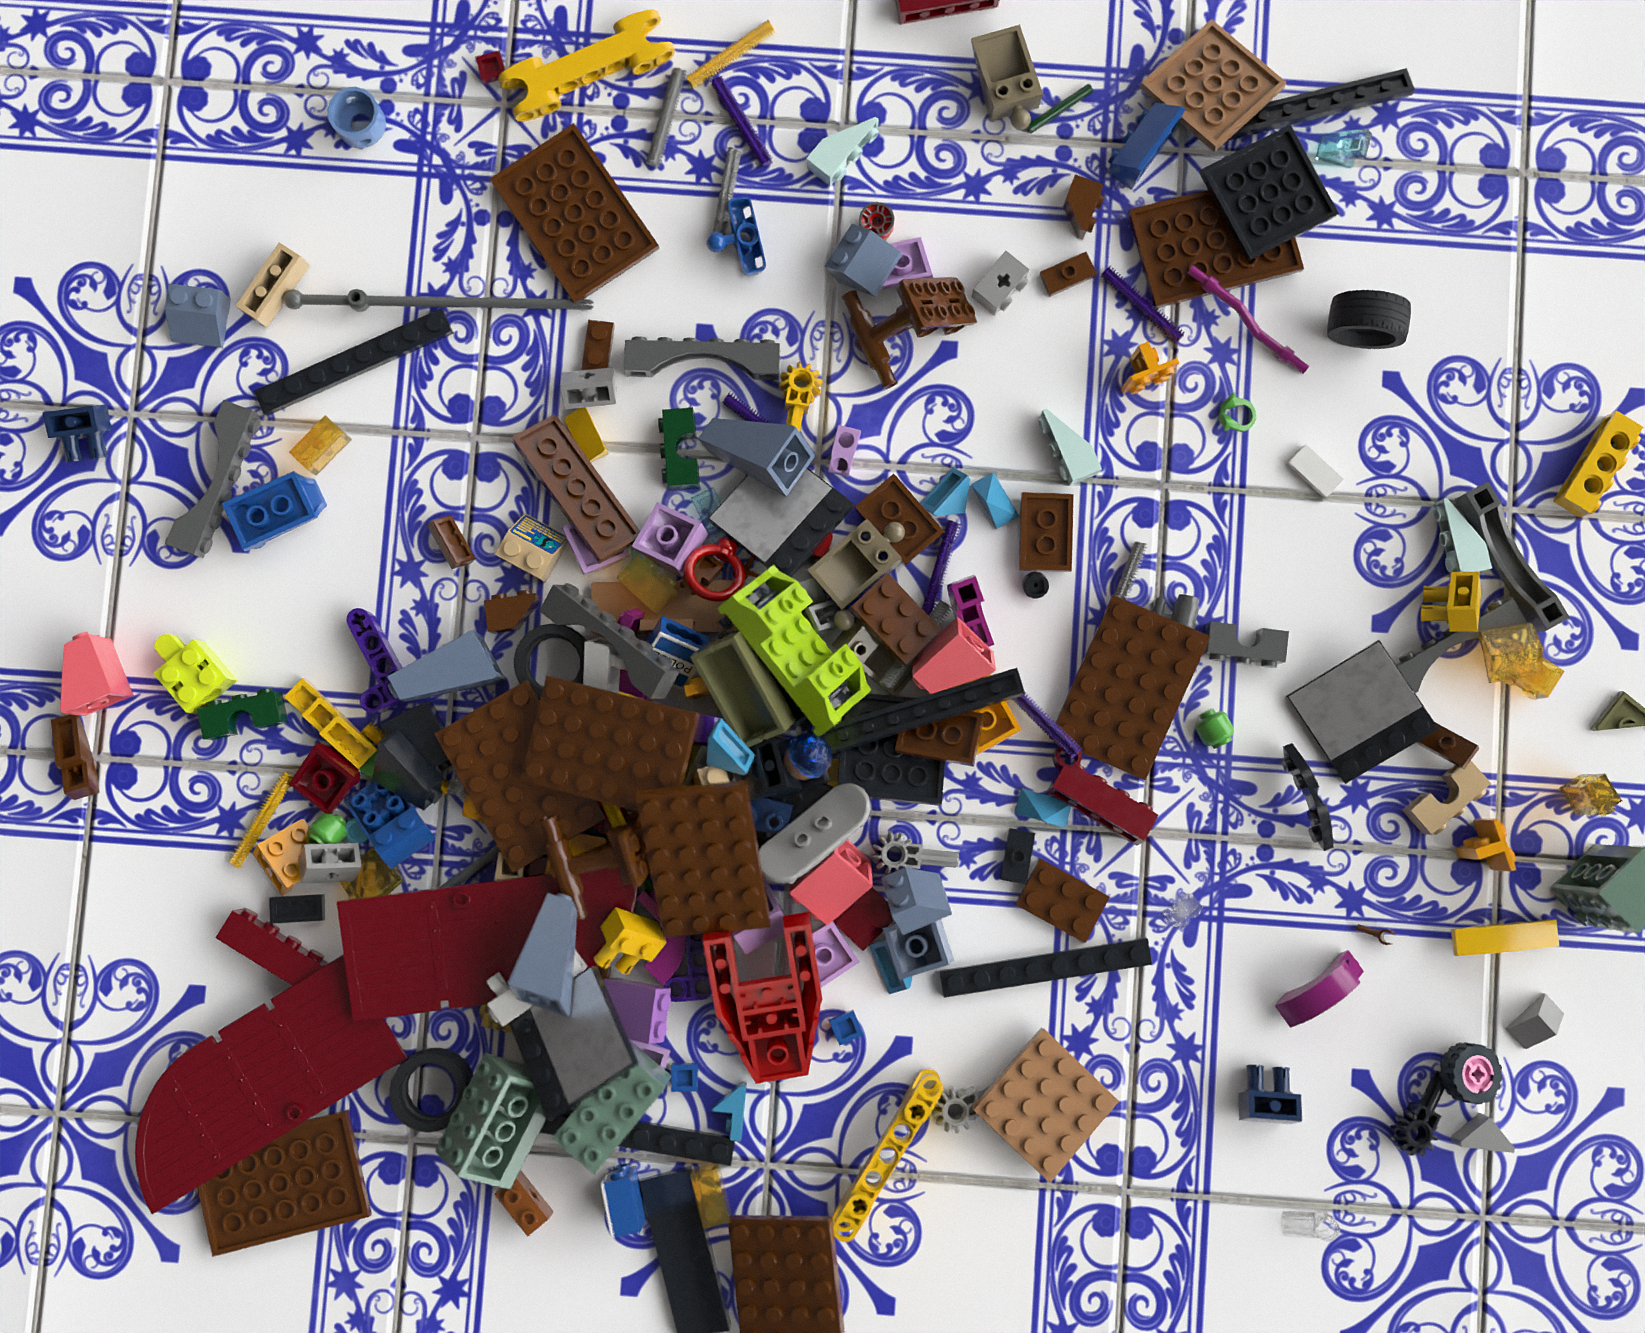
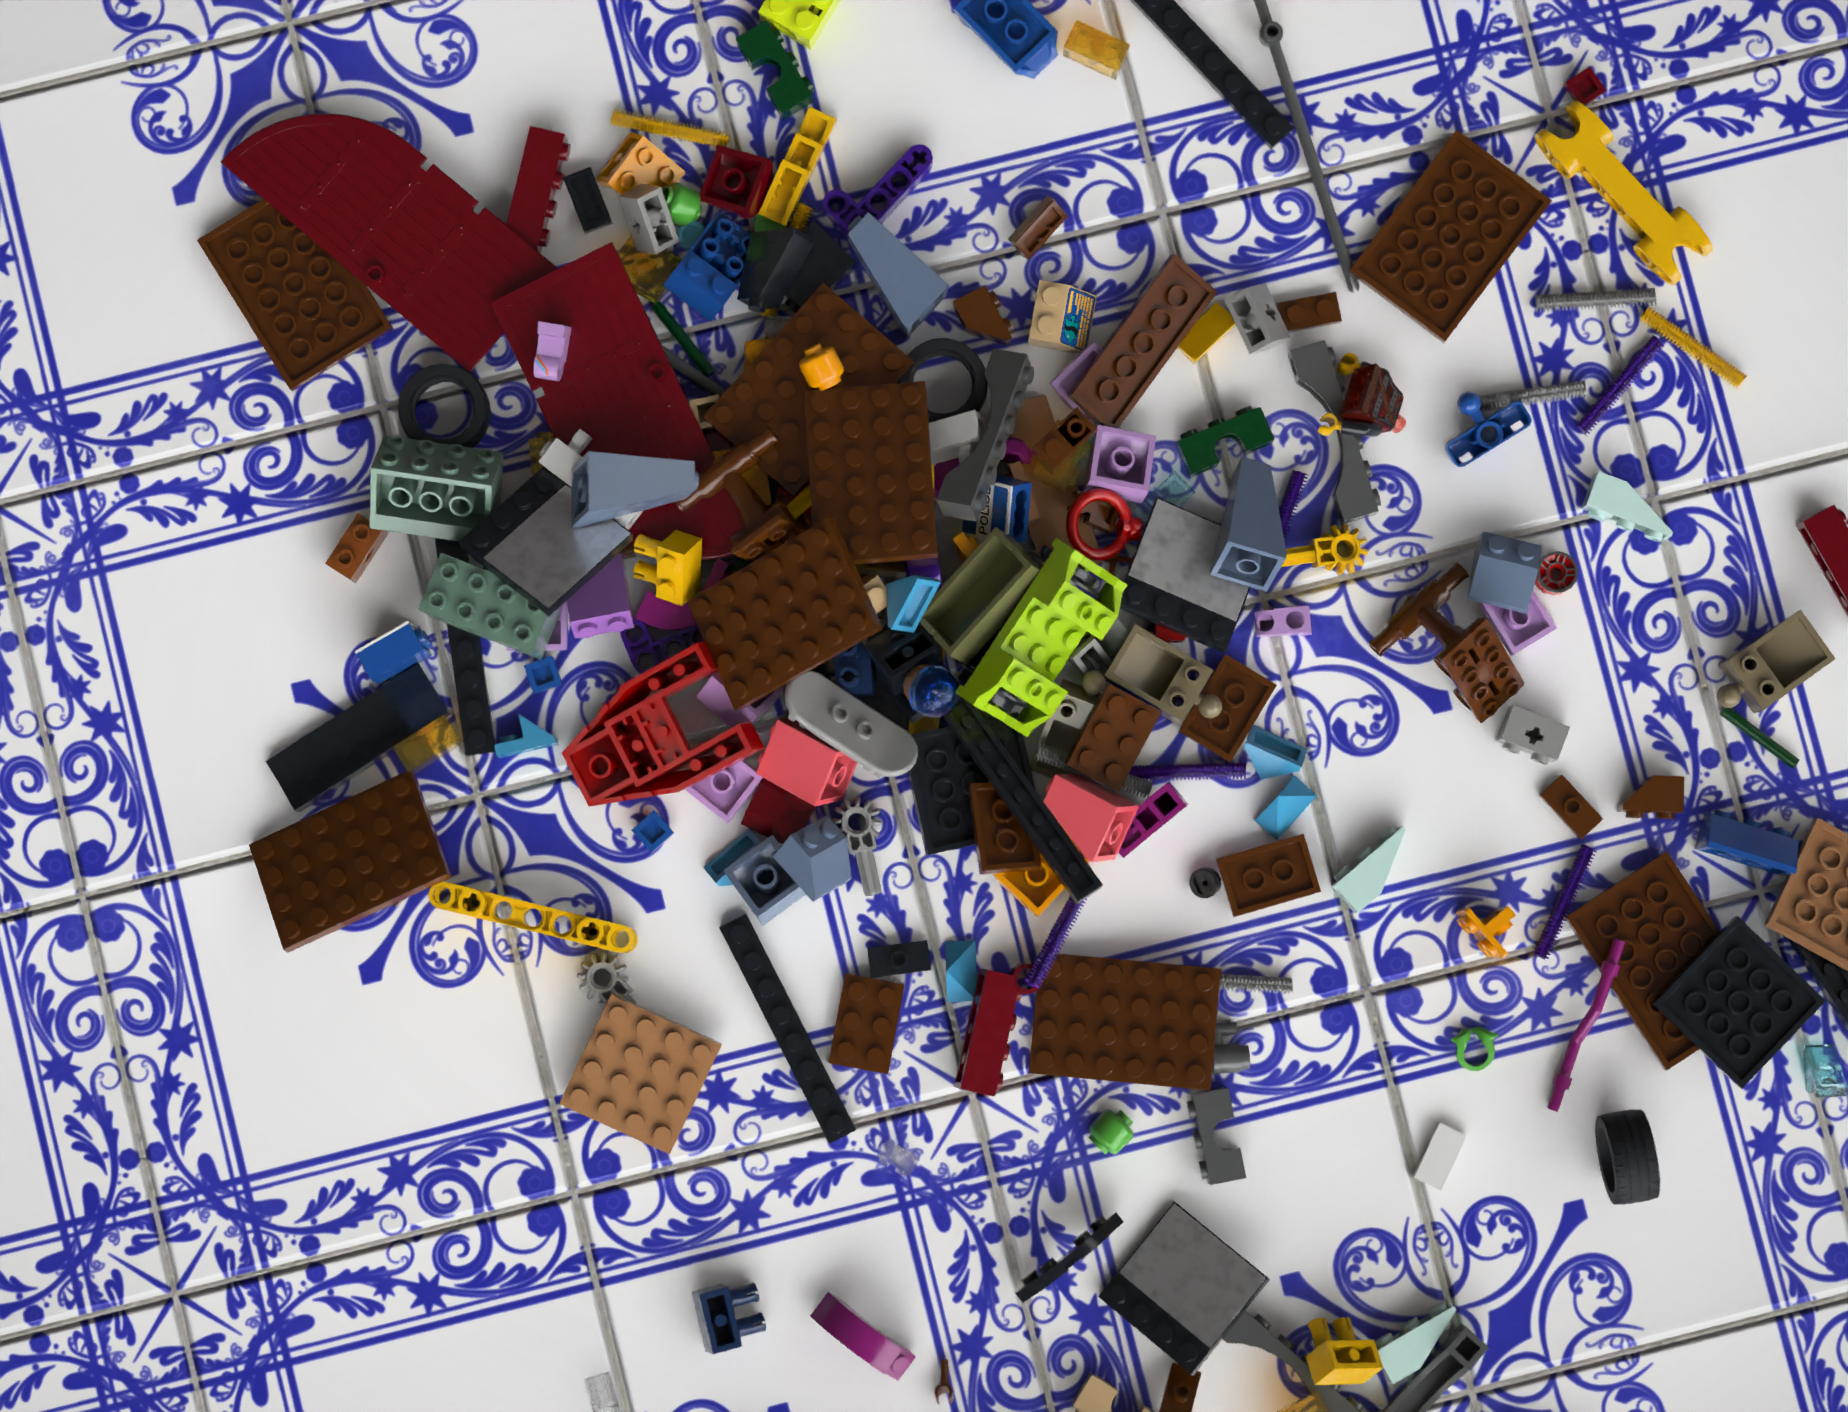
camera: 70 degrees right, 0 degrees up
(411, 983) = (551, 350): none -> lavender leg
(442, 866) = (683, 339): none -> dark green bar
(504, 758) = (821, 367): none -> light orange head
(636, 577) = (1063, 441): none -> reddish brown slope
(688, 320) = (1369, 404): none -> torso

